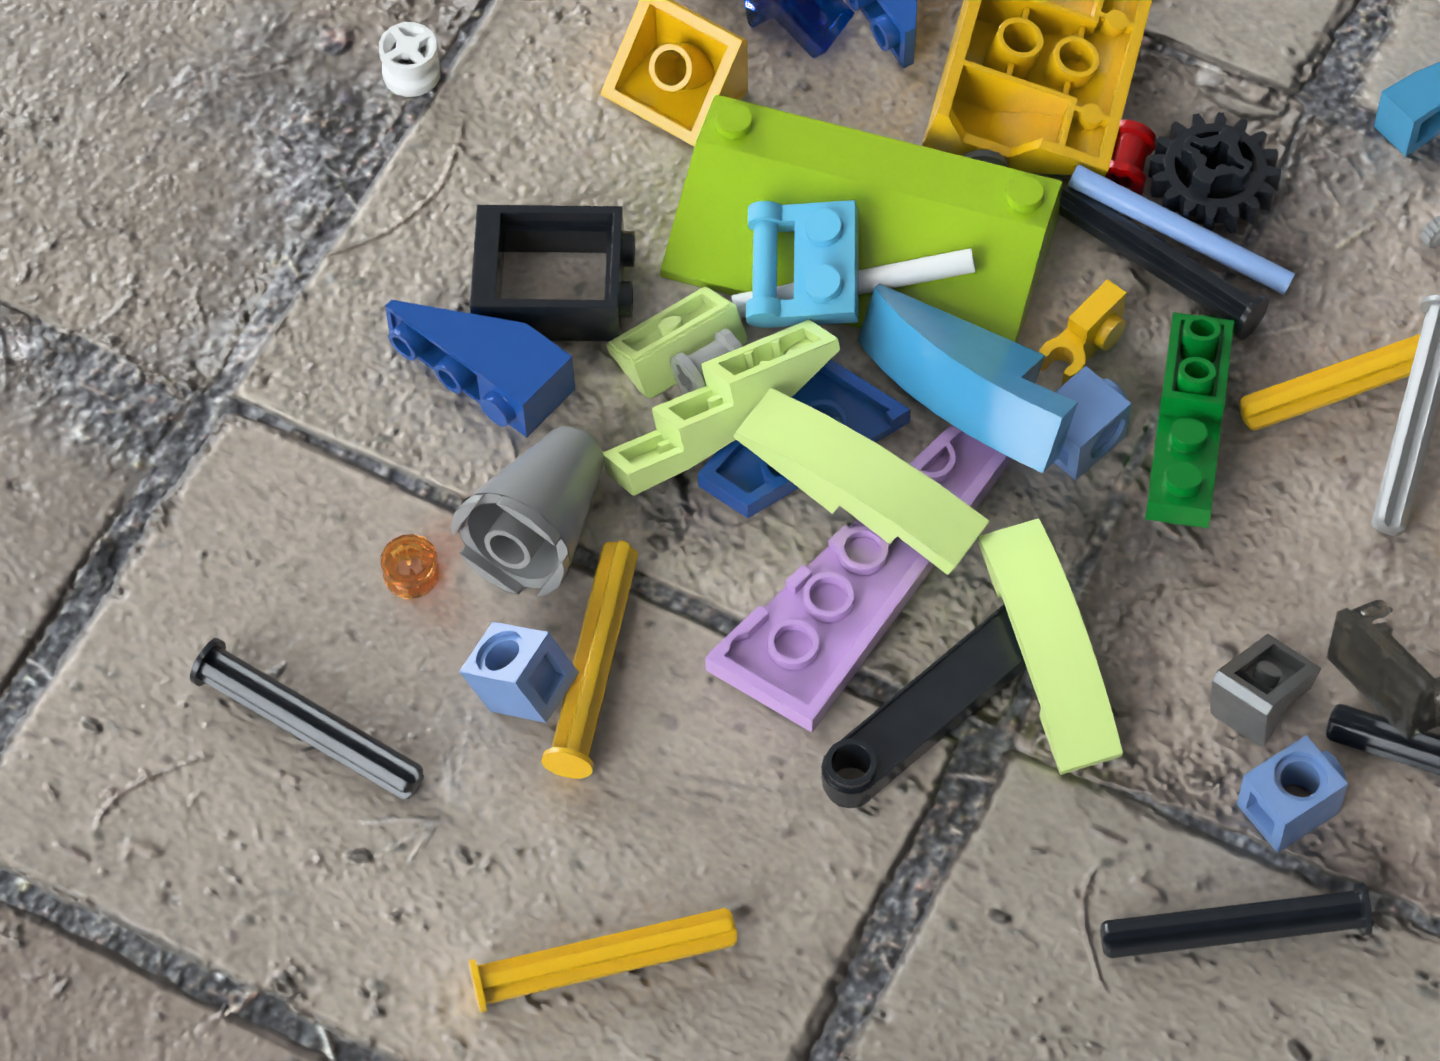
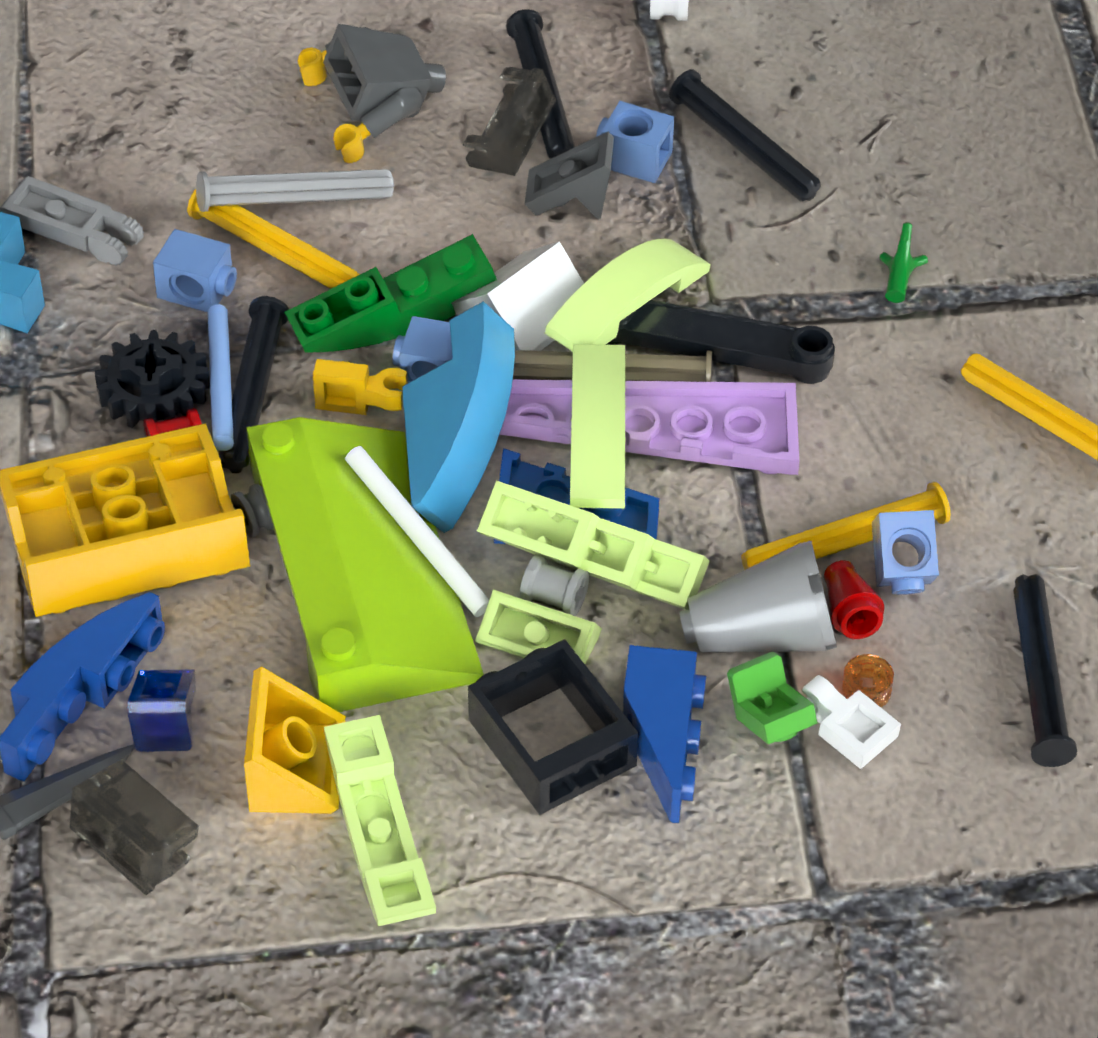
camera: 125 degrees left, 10 degrees down
(365, 514) = (853, 724): none -> white plate
(417, 47) = (402, 935): white wheel -> none
(438, 458) = (767, 702): none -> bright green bracket
(505, 600) = (852, 602): none -> red cone
(541, 104) = (377, 821): none -> yellowish green slope
(823, 263) = (427, 538): medium azure plate -> none
(921, 955) = (901, 266): none -> green bar
(954, 591) = (638, 367): none -> dark tan axle
(1117, 559) = (528, 293): none -> white slope
(1351, 275) = (194, 271): none -> medium blue brick

